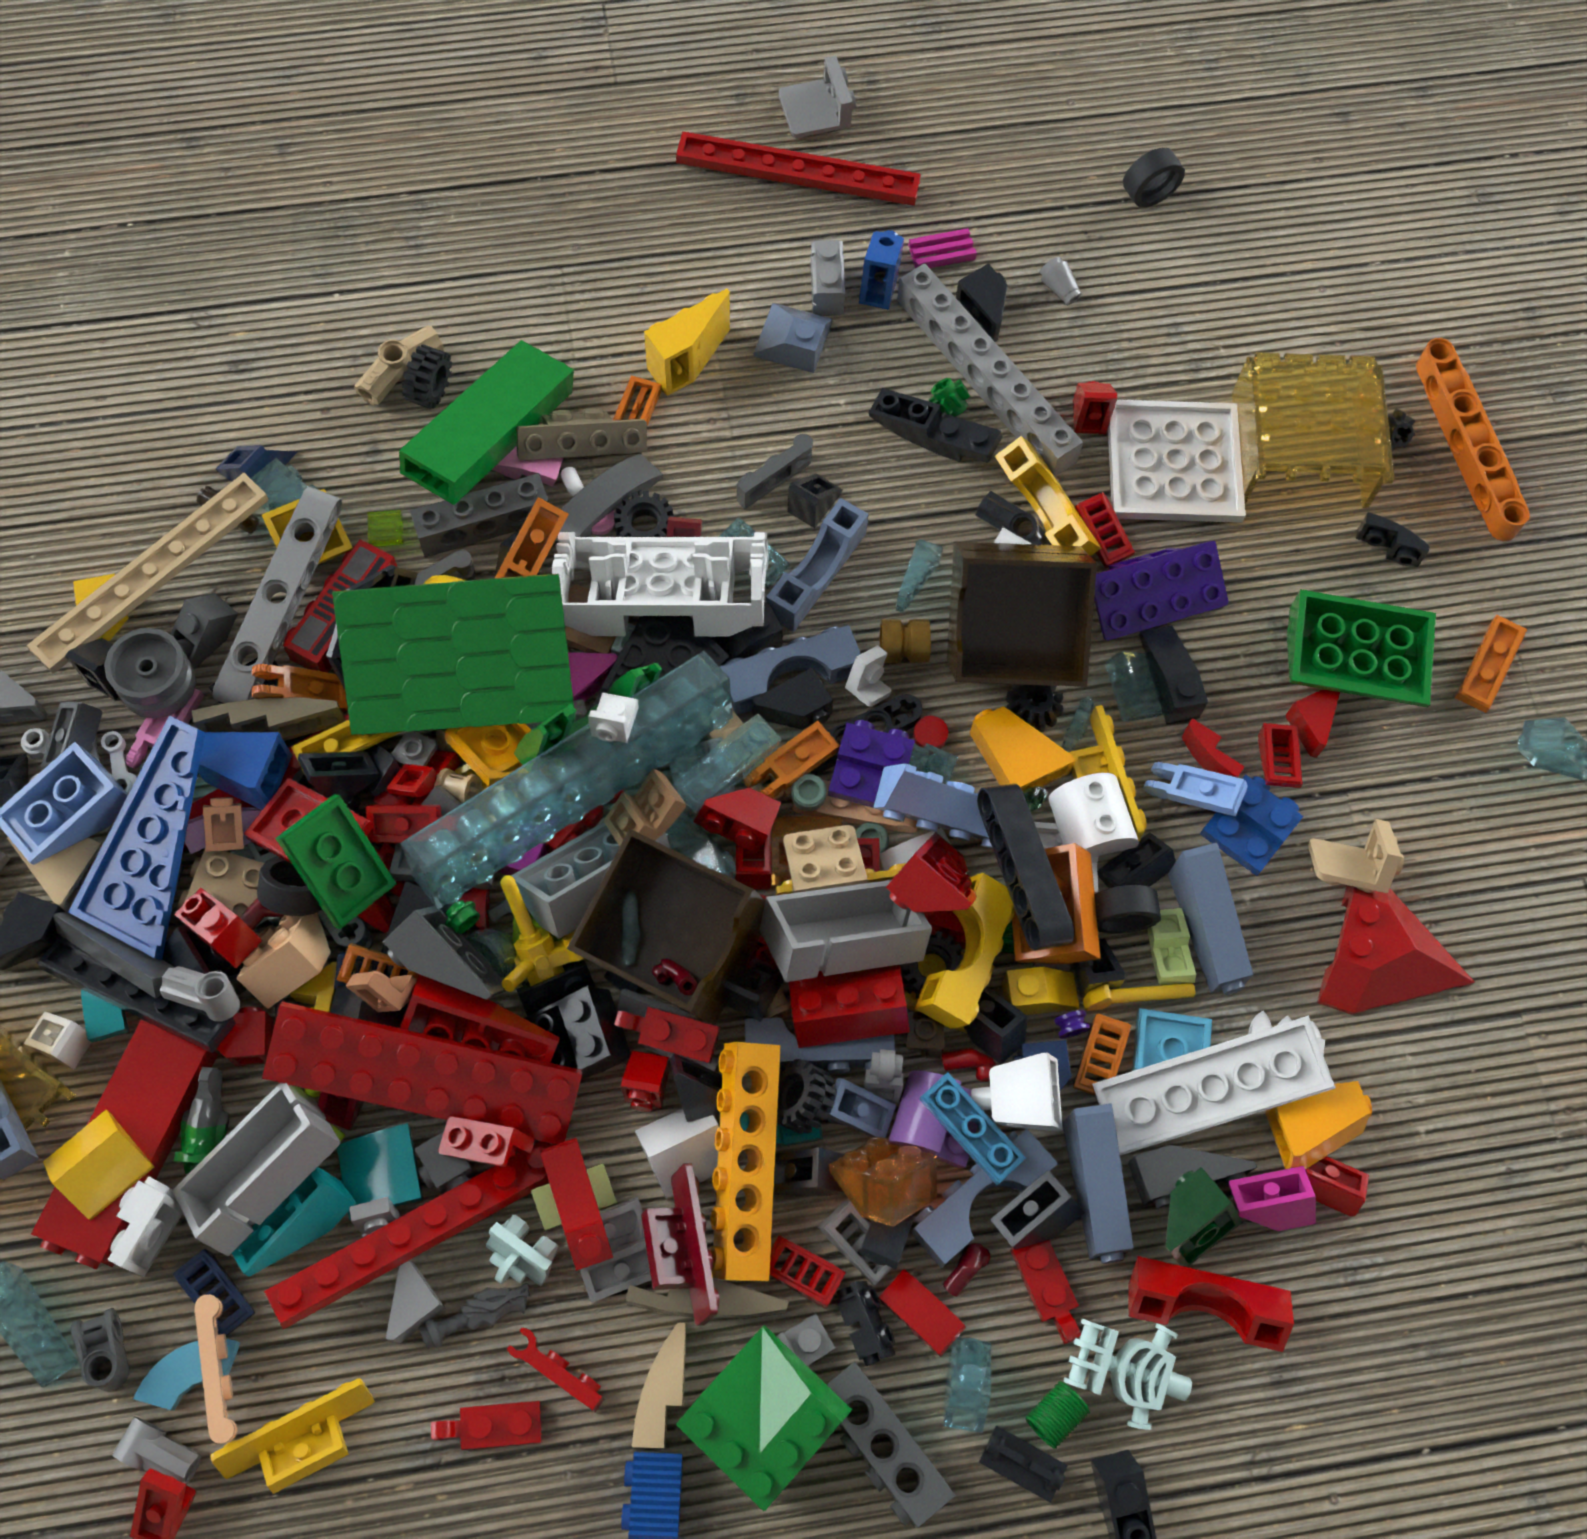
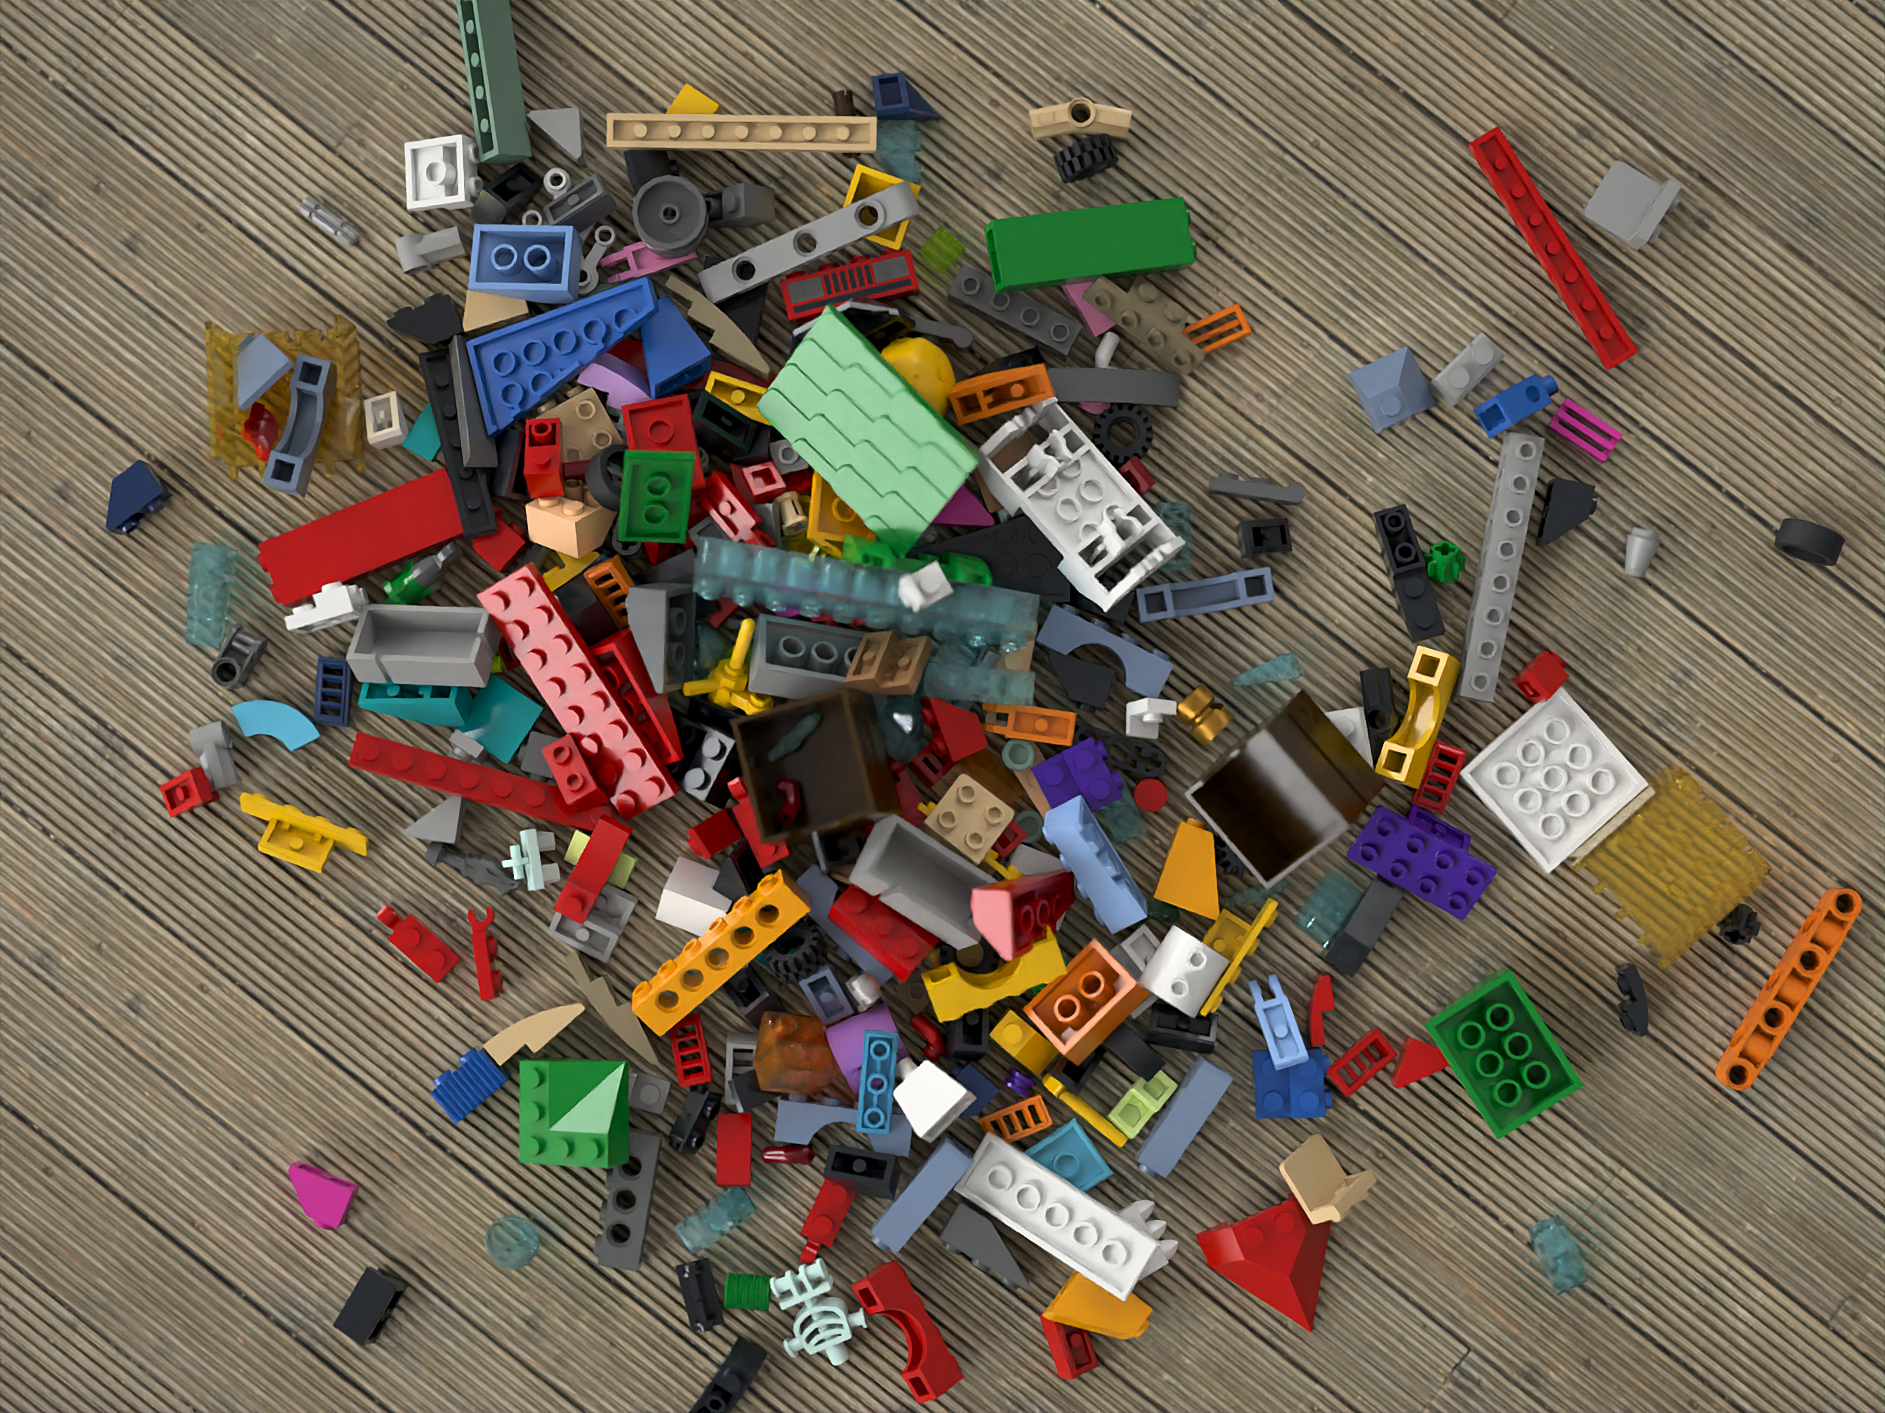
camera: 50 degrees right, 20 degrees up
(97, 1165) = (333, 540): yellow slope -> none
(202, 991) = (493, 493): light grey piece -> none
(216, 1386) = (282, 754): light nougat plate -> none
(223, 825) = (614, 385): nougat bracket -> none
(298, 683) = (761, 328): orange hinge -> none
(382, 992) = (602, 621): nougat bracket -> none
(462, 916) = (702, 612): green plate -> none
(679, 1247) = (625, 961): dark red bracket -> none
(687, 341) = (1291, 323): yellow slope -> none
(1025, 867) = (1088, 962): black beam -> none
(1198, 1217) = (955, 1278): dark green slope -> none
(1276, 1199) = (1015, 1318): dark pink slope -> none
(1491, 663) = (1593, 1152): orange tile -> none

